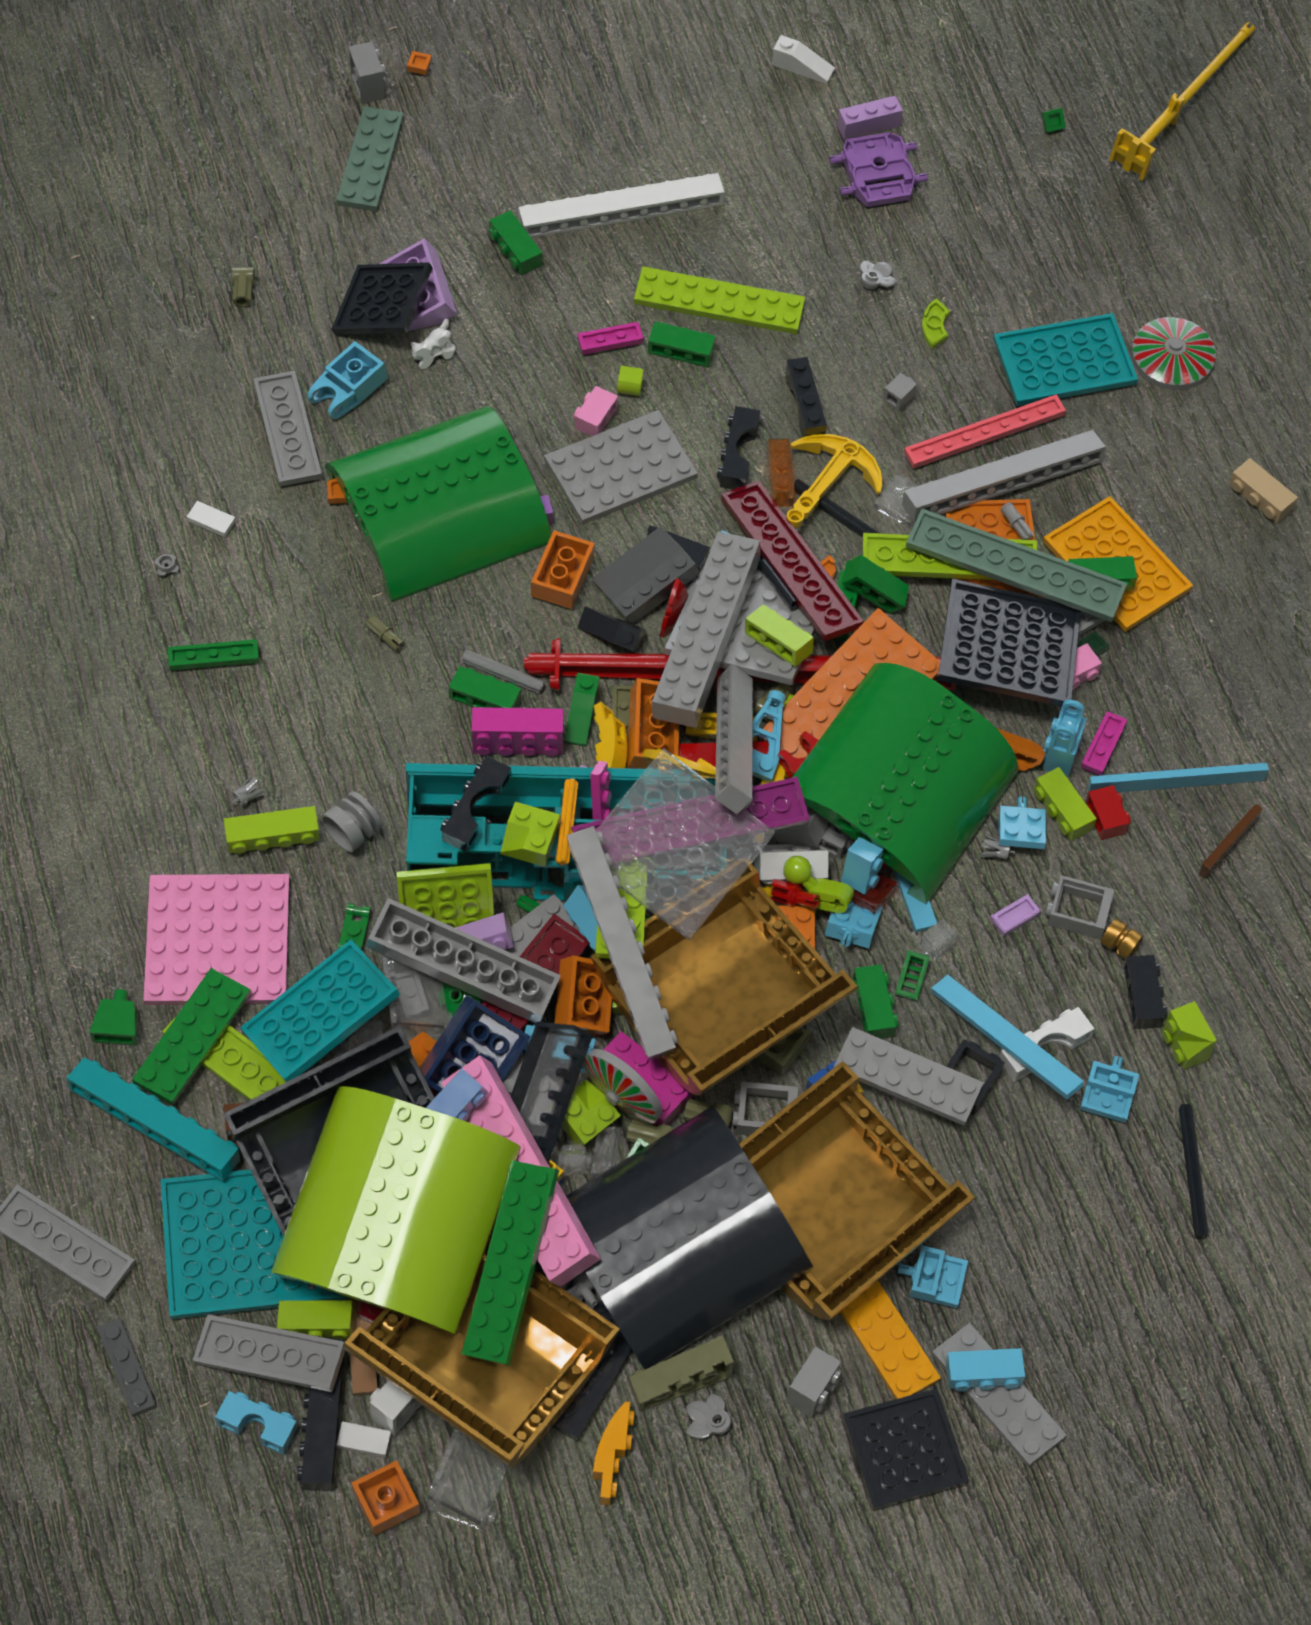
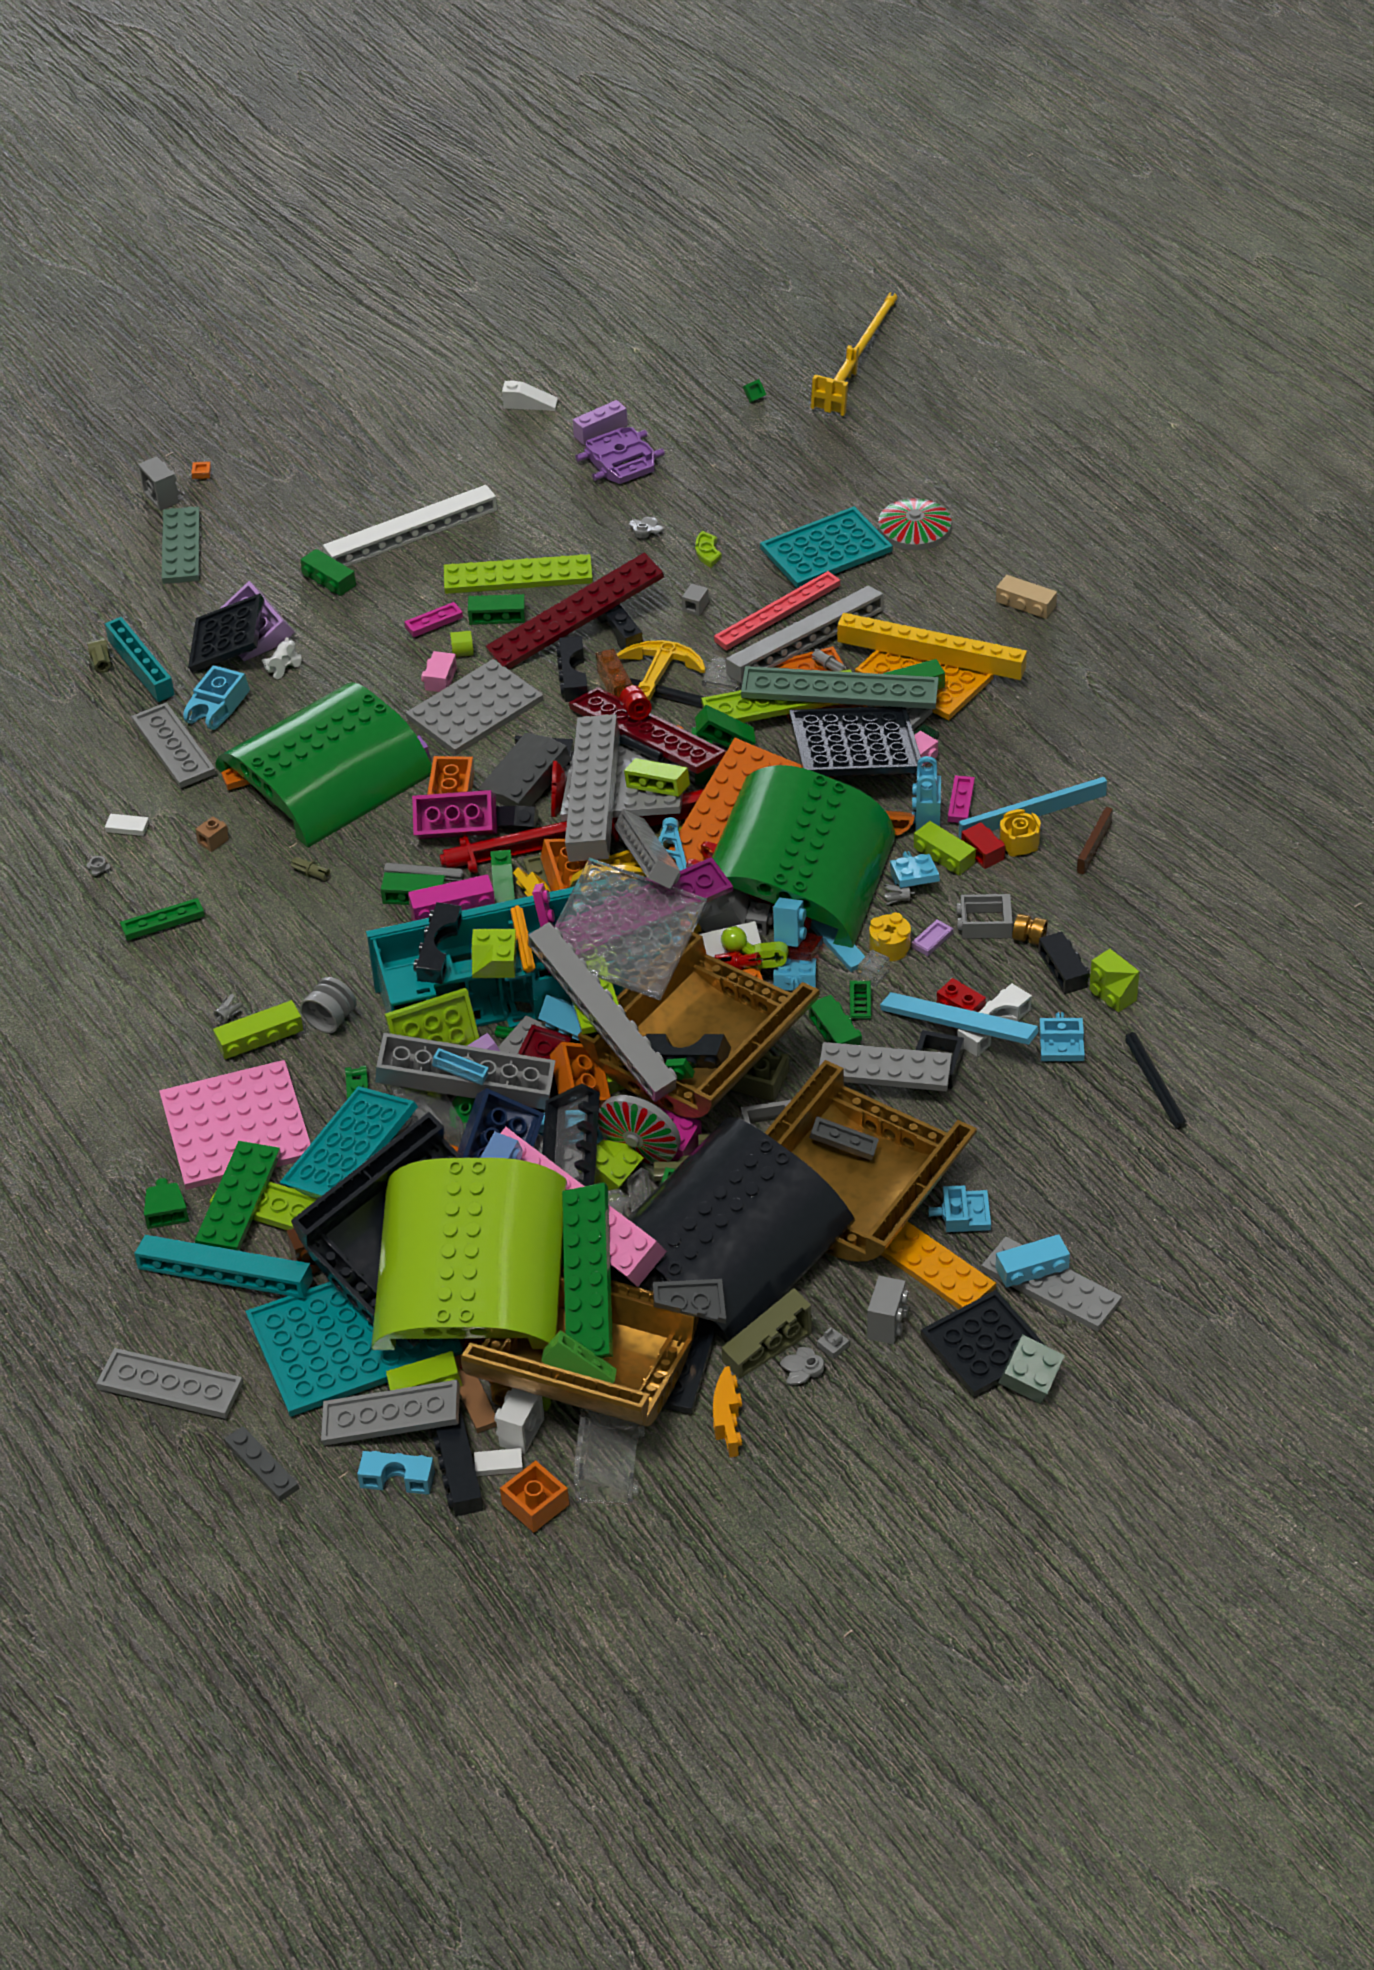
camera: 10 degrees left, 15 degrees down
(282, 306) = (139, 659): none -> teal brick
(295, 558) = (212, 834): none -> medium nougat brick
(455, 962) = (460, 1066): none -> medium azure piece
(470, 1362) = (572, 1356): none -> bright green slope
(553, 614) = (454, 814): none -> dark pink brick
(610, 1321) = (692, 1298): none -> dark grey wing
(686, 1026) = (681, 1068): none -> green plate
(722, 1017) = (705, 1053): none -> black arch
(748, 1399) = (832, 1343): none -> light grey tile
(762, 376) = (575, 611): none -> dark red plate
(788, 524) = (635, 702): none -> red wheel
(836, 1155) = (844, 1138): none -> dark grey plate
(940, 1502) = (1031, 1369): none -> sand green brick
(968, 905) = (890, 936): none -> yellow brick
(1018, 1008) = (960, 996): none -> red brick
(1135, 534) = (932, 645): none -> yellow brick
(1152, 809) = (1020, 832): none -> yellow brick

